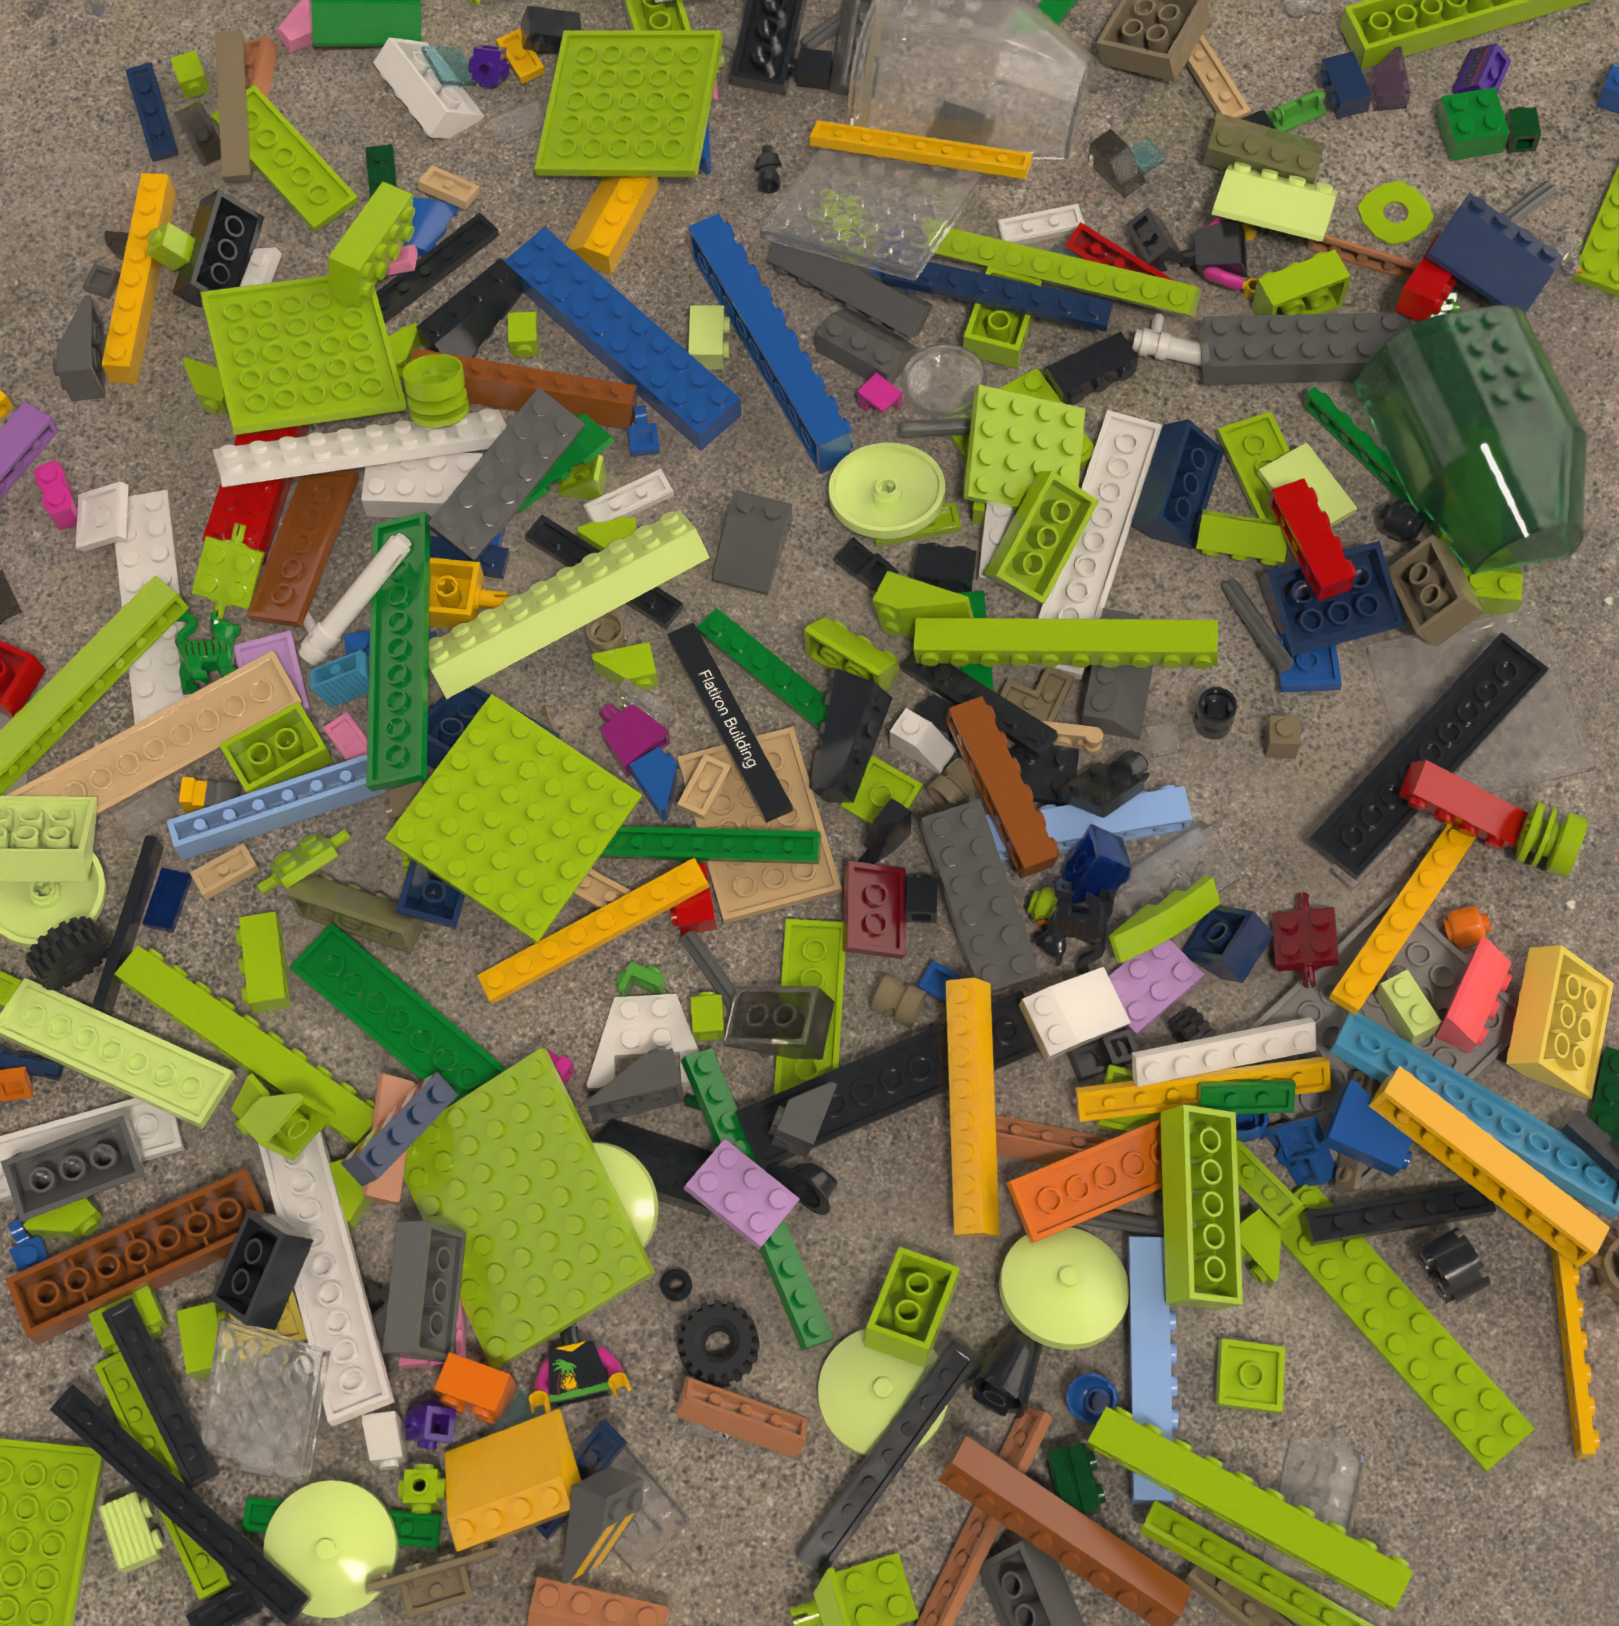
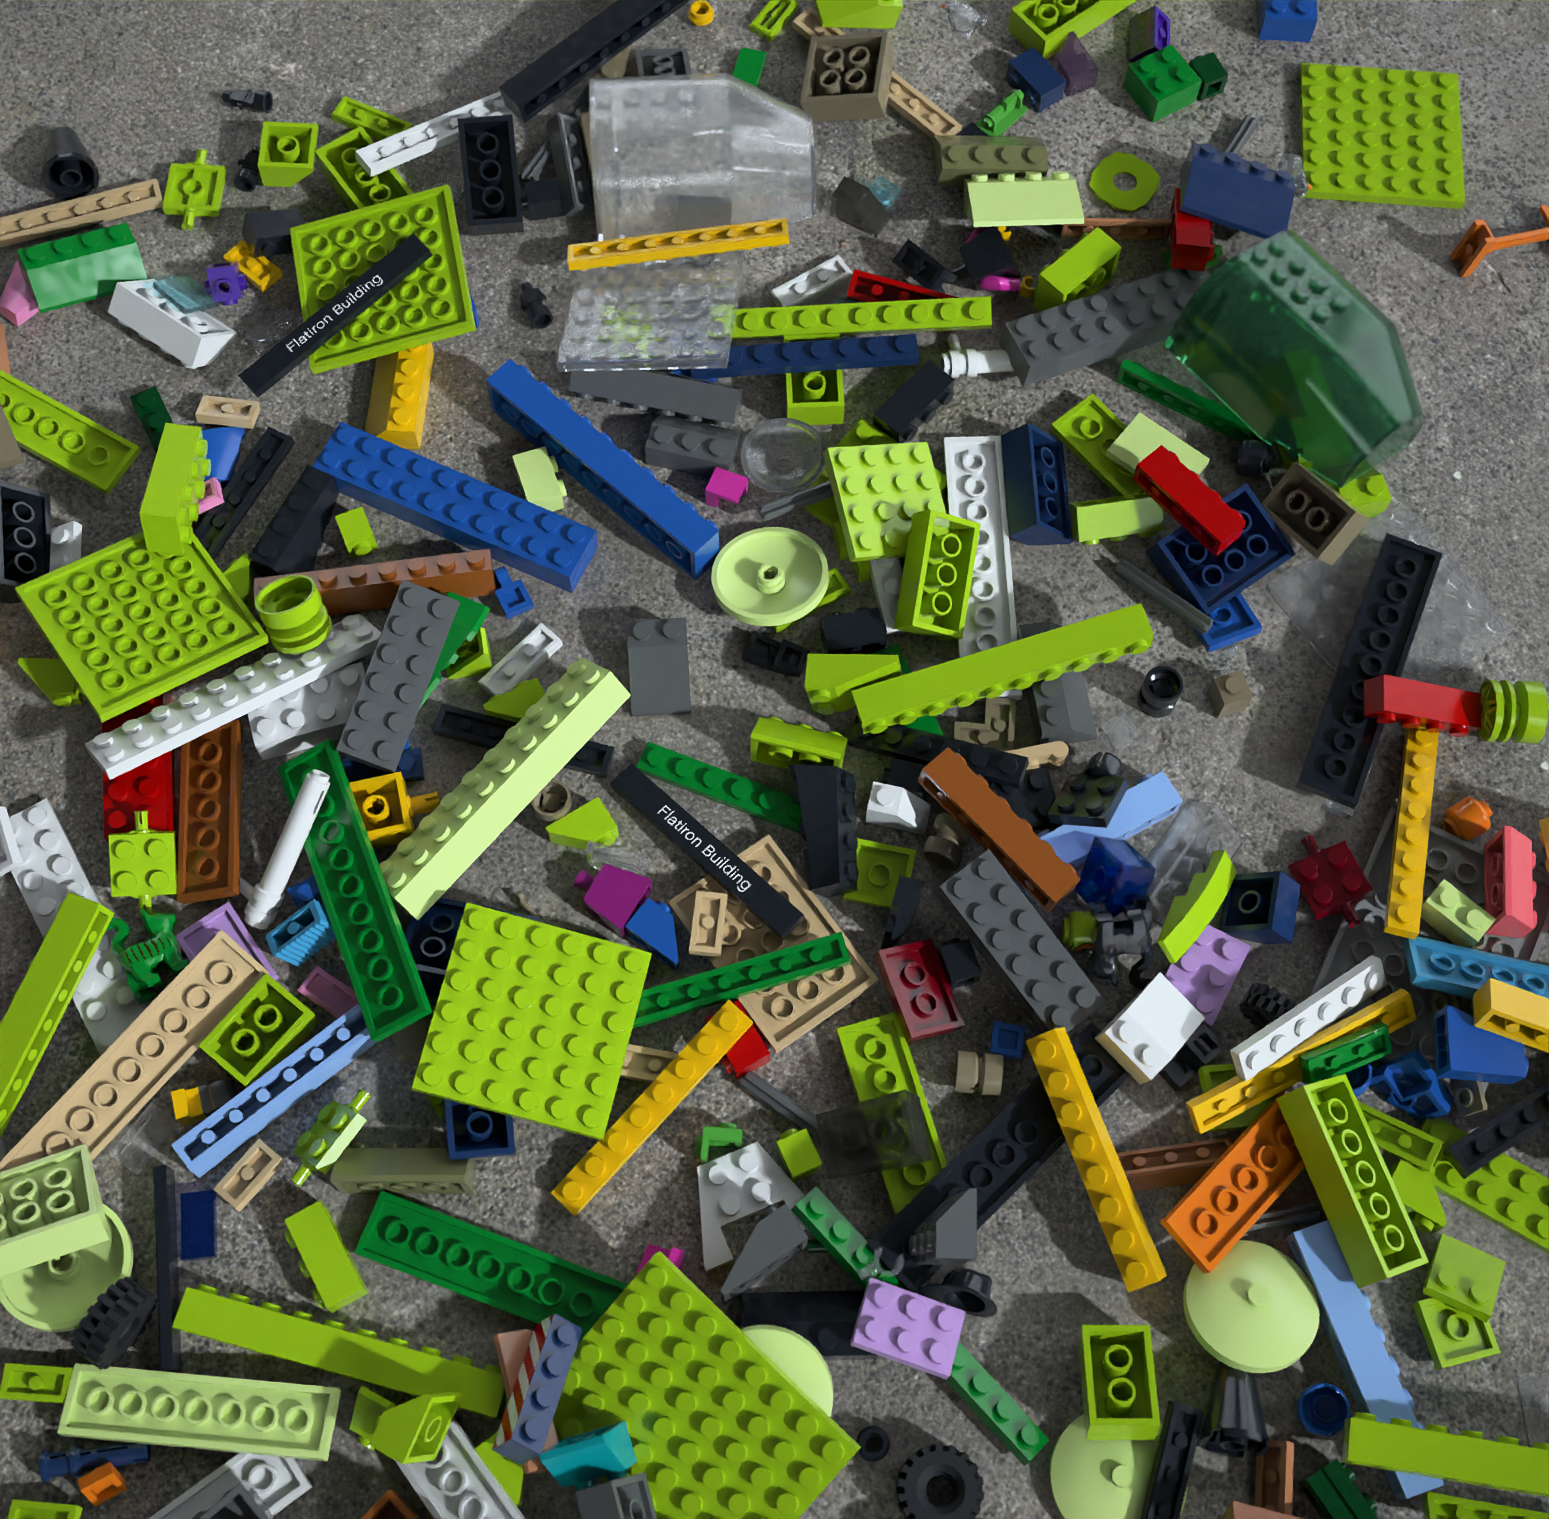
camera: 25 degrees left, 0 degrees up
(423, 1200) = (590, 1456): none -> teal slope
(574, 125) = (335, 315): none -> black tile
(732, 1133) = (874, 1268): none -> clear piece
(1276, 1333) = (1464, 1277): none -> lime plate

